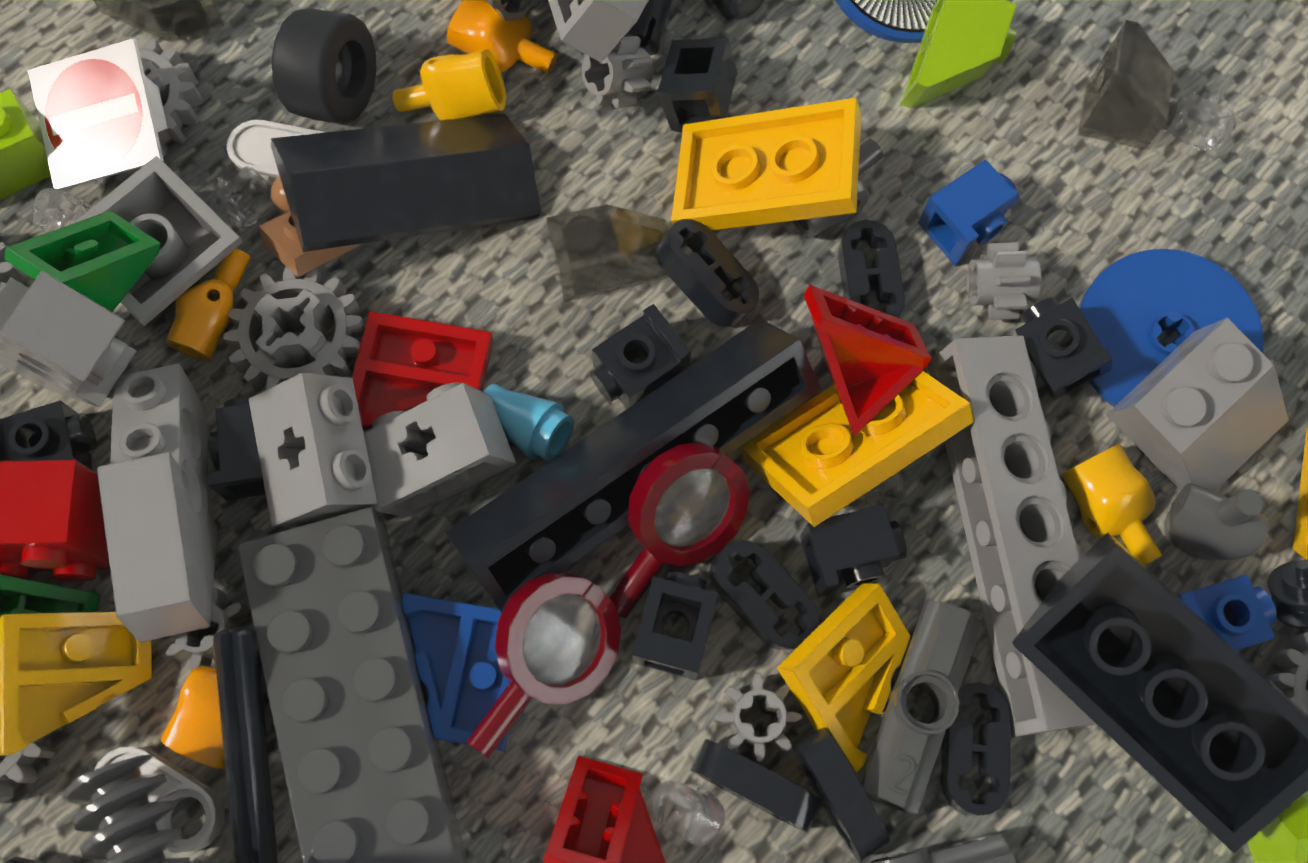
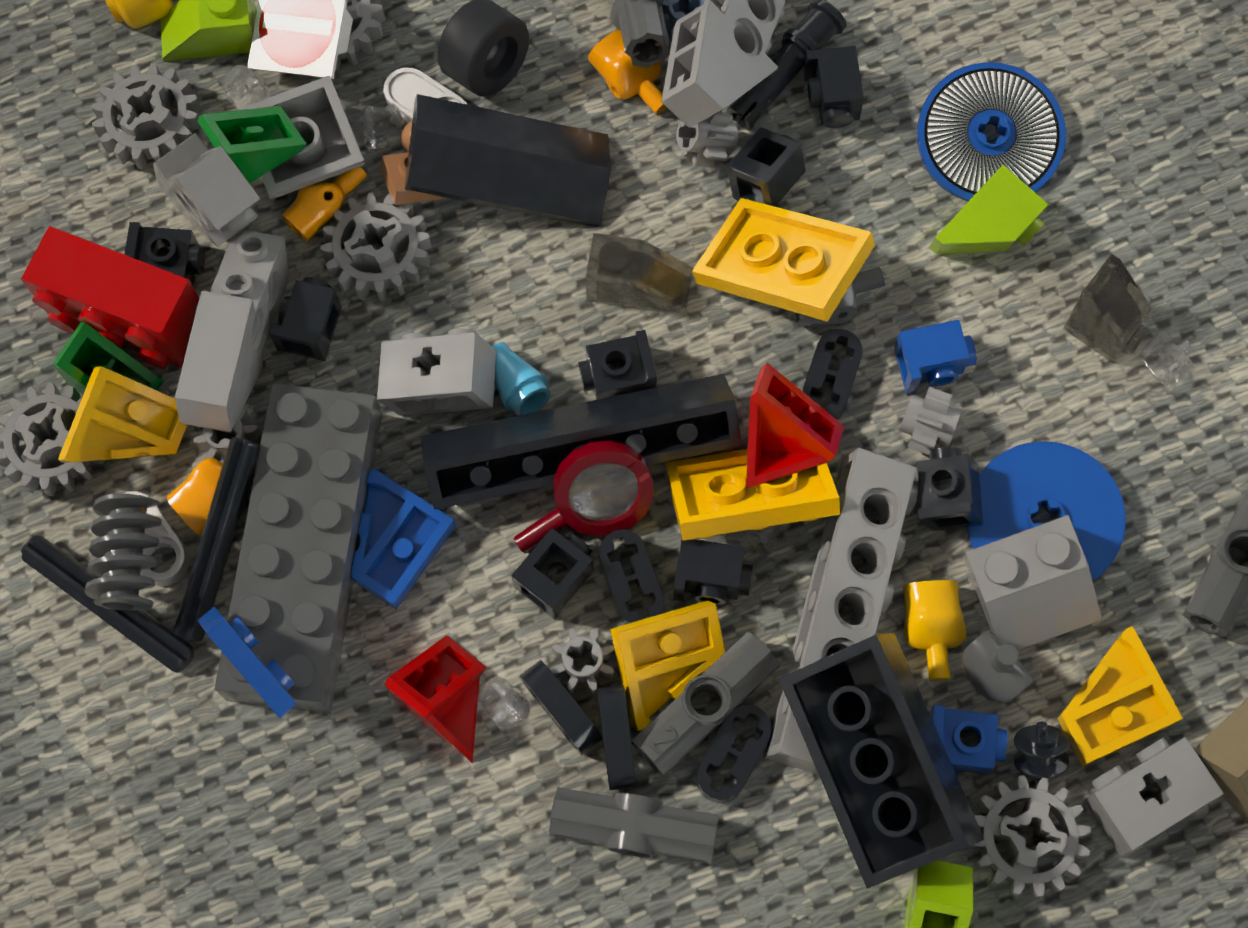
camera: 30 degrees right, 0 degrees up
(312, 449) = (351, 337): light grey brick -> none
(409, 358) = (449, 299): red wing -> none
(456, 87) = (577, 100): yellow piece -> none
(551, 647) = (461, 546): dark red piece -> none
(707, 273) = (702, 322): black beam -> none

